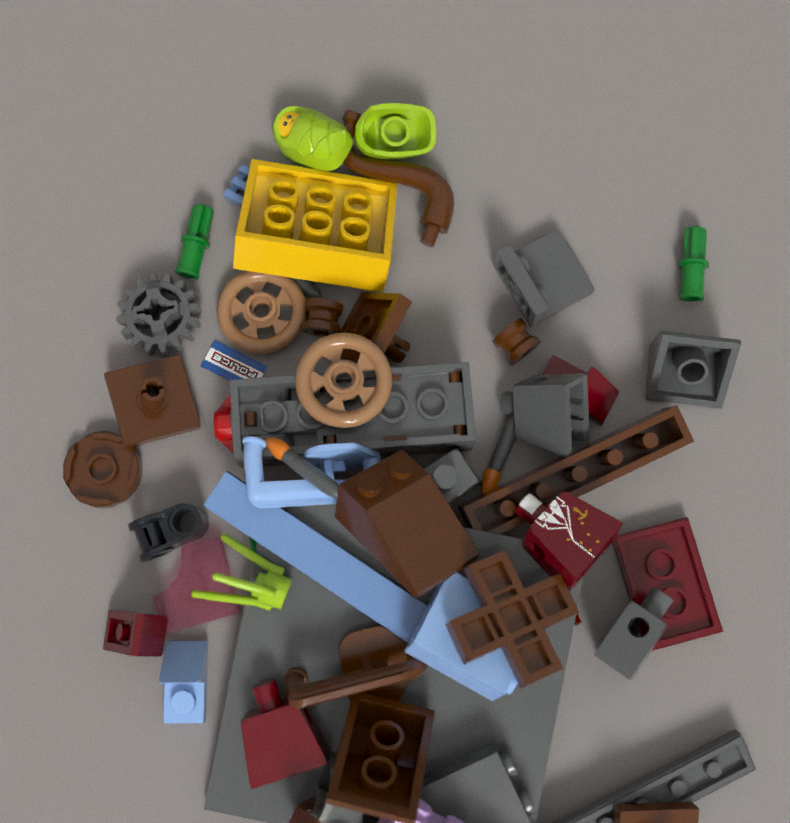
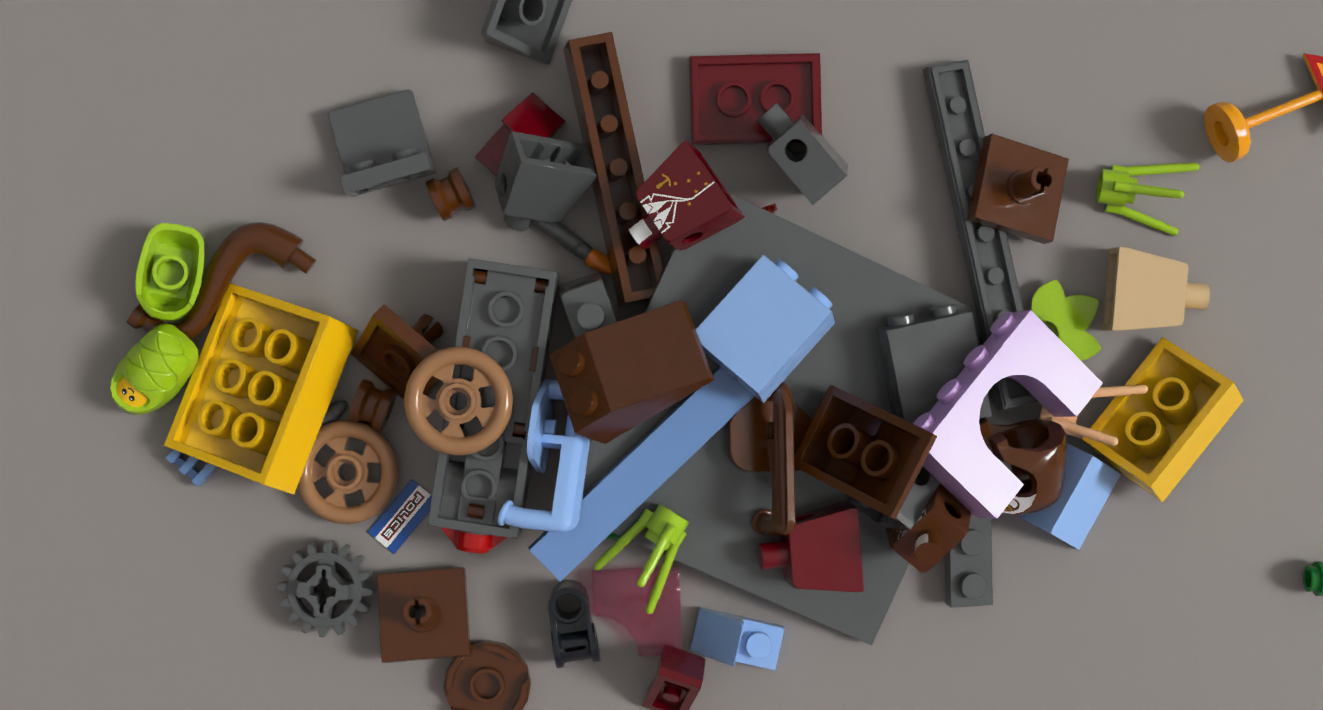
camera: 80 degrees left, 10 degrees up
(195, 242) = (247, 530): green axle -> none
(302, 466) = (543, 467): dark grey piece -> none
(512, 619) = (757, 284): reddish brown plate -> none

